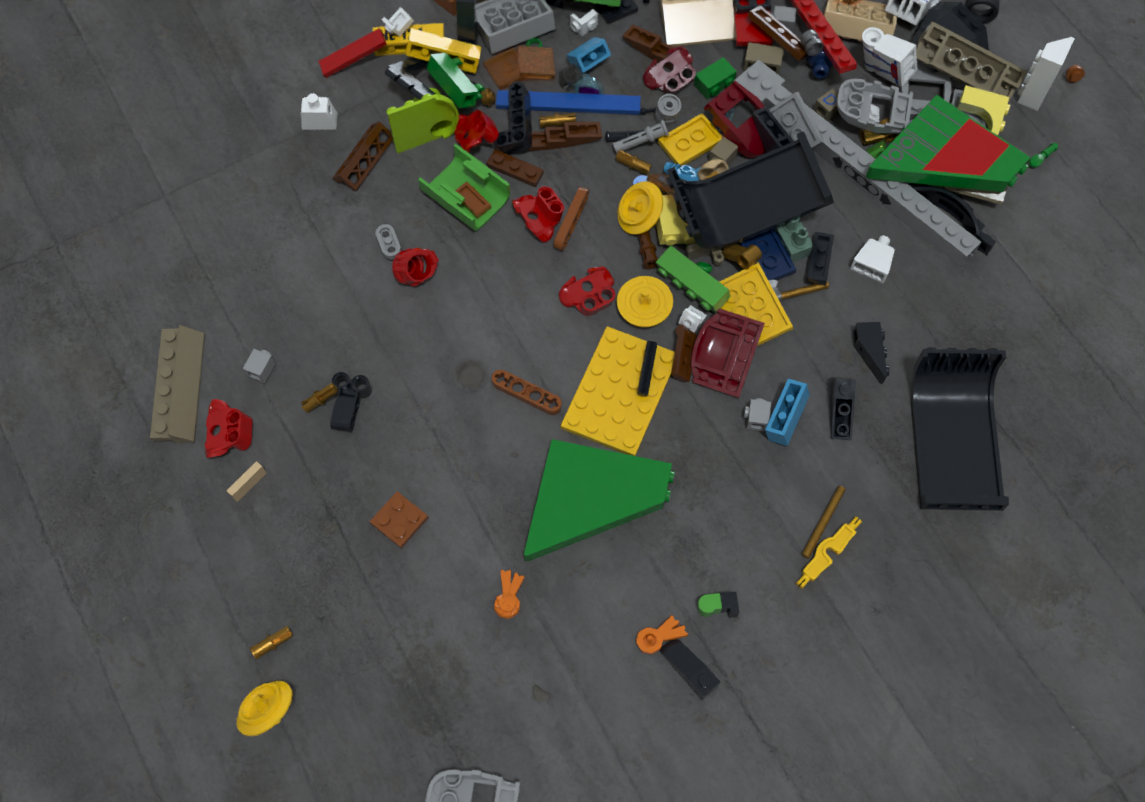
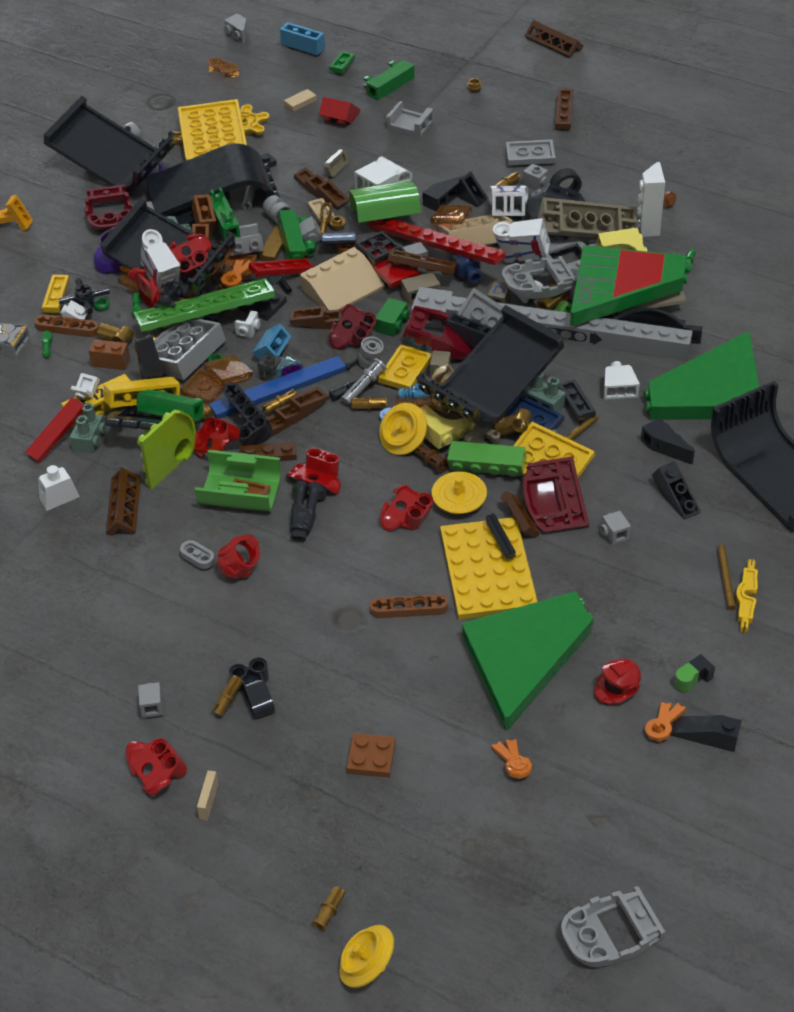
camera: 30 degrees left, 20 degrees down
(177, 385) = (79, 755): dark tan slope -> none
(374, 66) = (87, 430): none -> sand green brick
(496, 252) = (304, 517): none -> black piece
(571, 218) = (348, 465): dark orange beam -> none
(646, 574) = (622, 674): none -> red helmet
(692, 318) = (508, 484): white bracket -> none
(787, 412) = (638, 512): dark azure brick -> none
(811, 42) = (455, 255): flat silver wheel -> none
(957, 308) = (704, 382): none -> green slope

